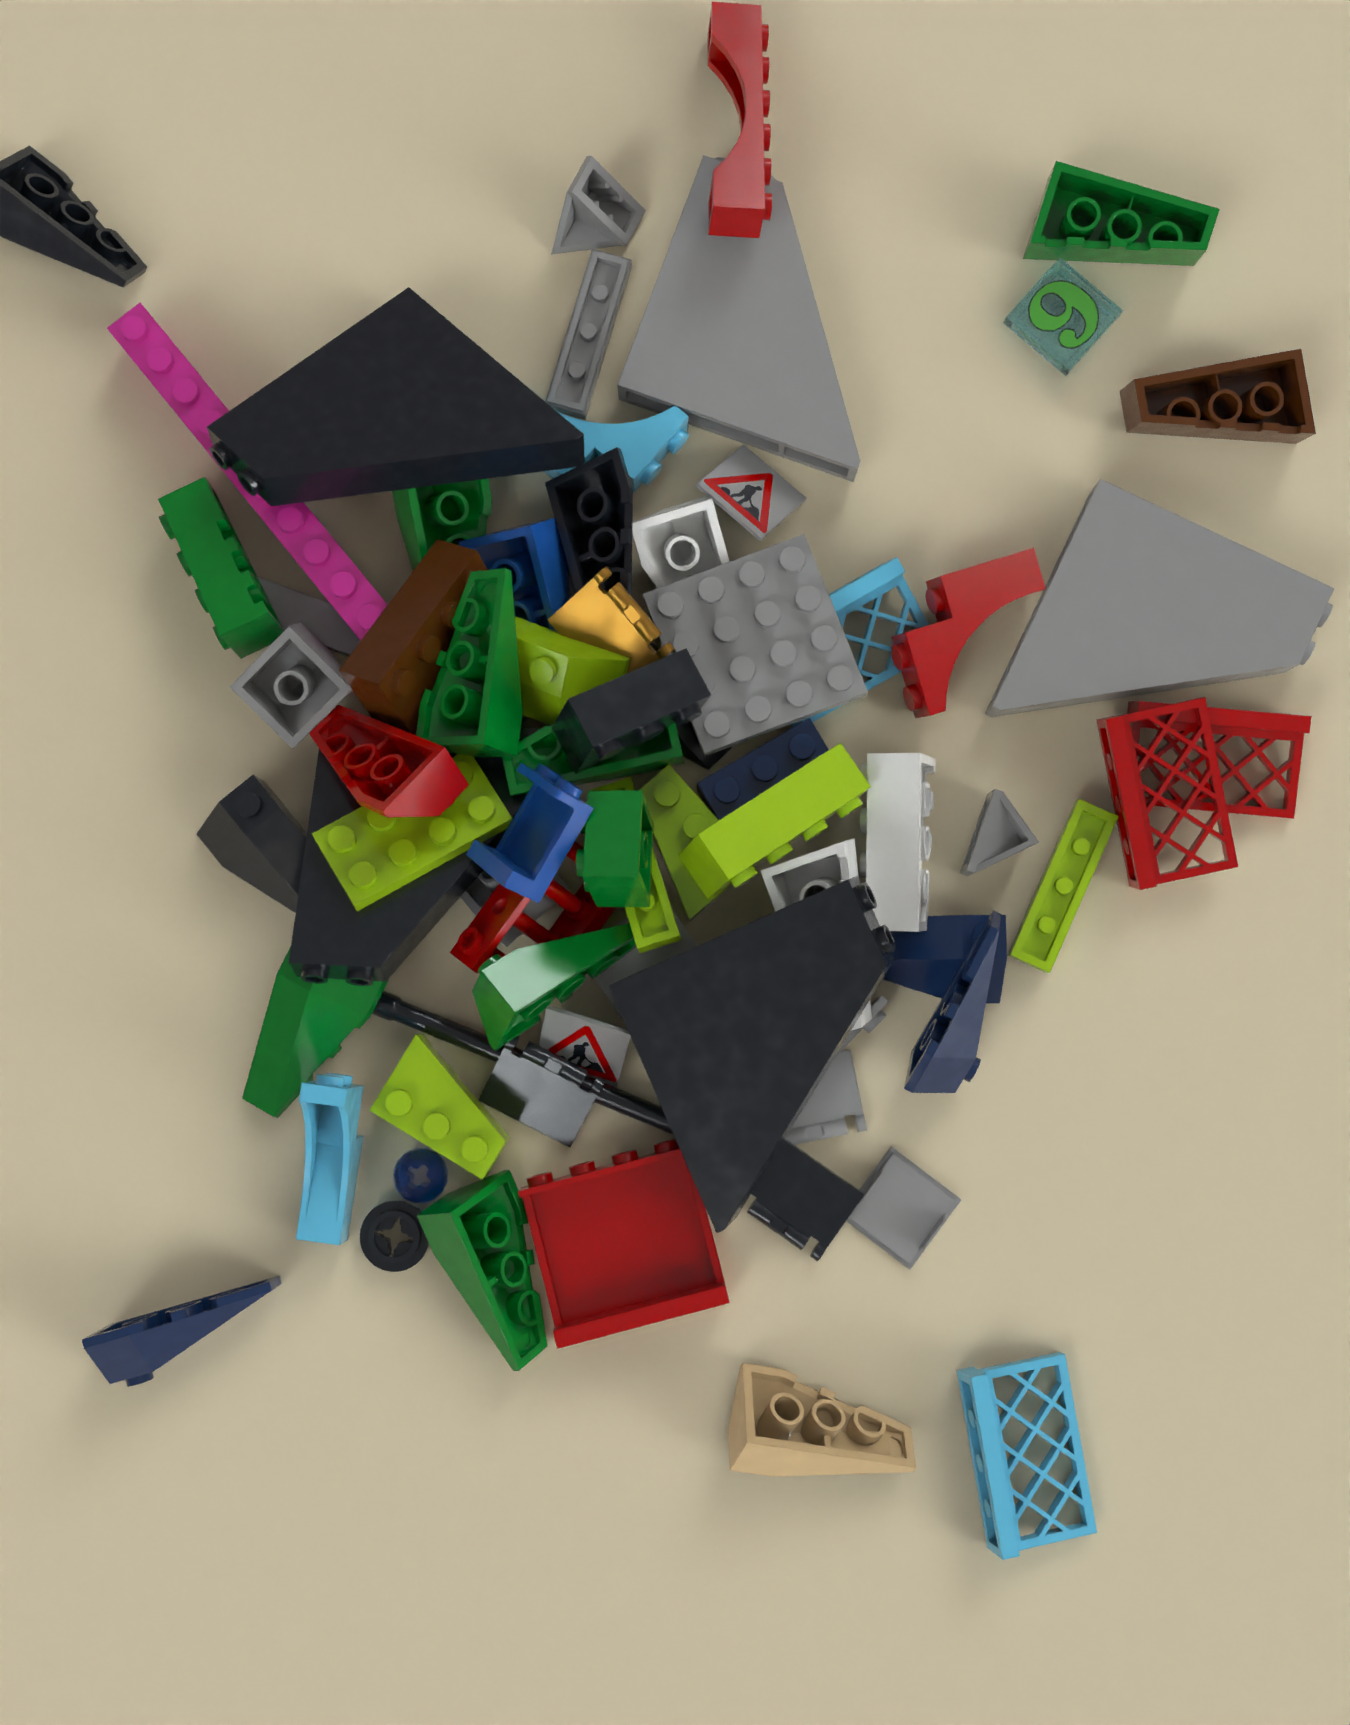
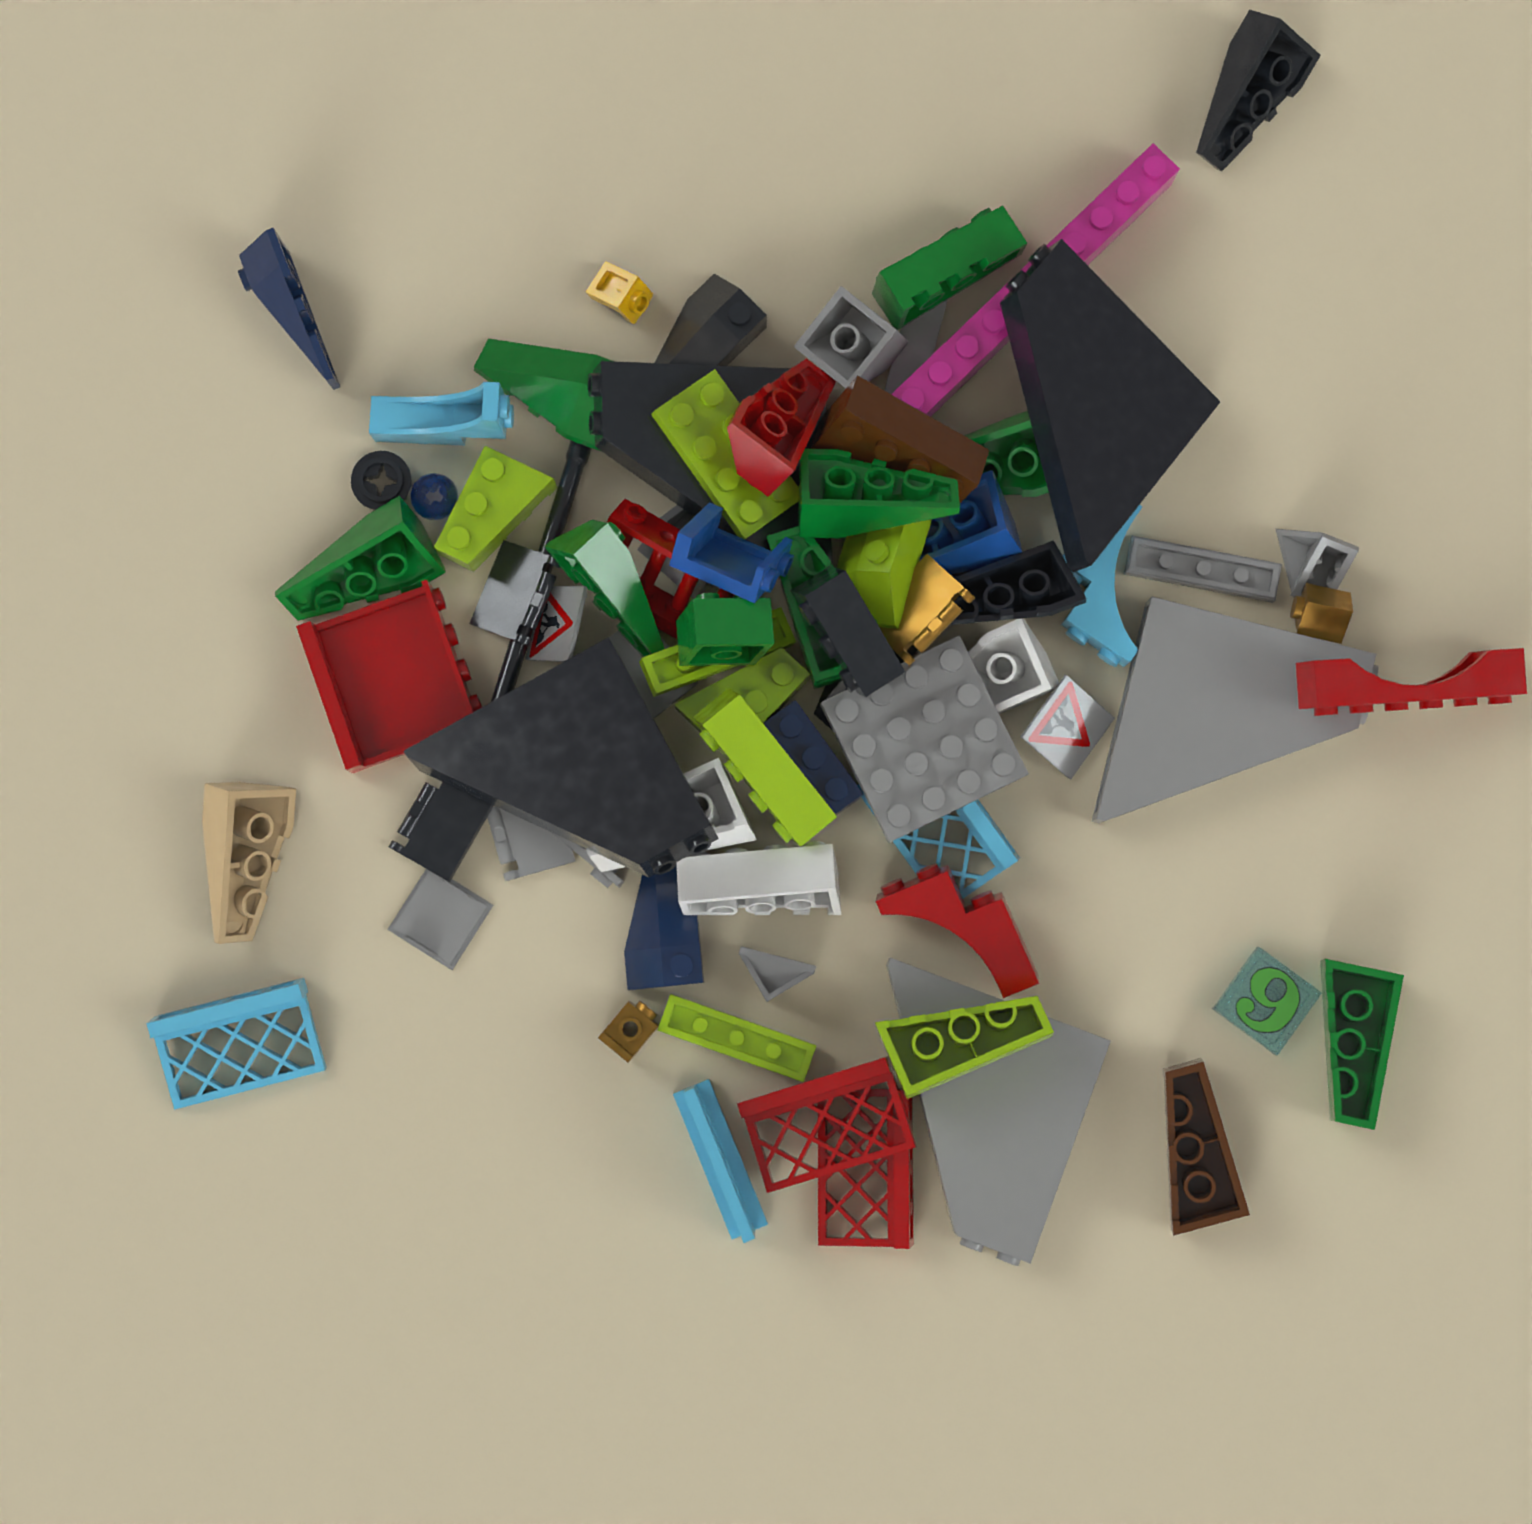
camera: 85 degrees right, 0 degrees up
(205, 941) = (620, 291): none -> yellow bracket
(652, 208) = (1322, 613): none -> pearl gold brick
(951, 1038) = (600, 949): dark blue wedge -> none
(1028, 1002) = (625, 1045): none -> pearl gold brick
(1098, 639) = (955, 1042): none -> lime wedge
(1198, 915) = (721, 1160): none -> medium azure fence

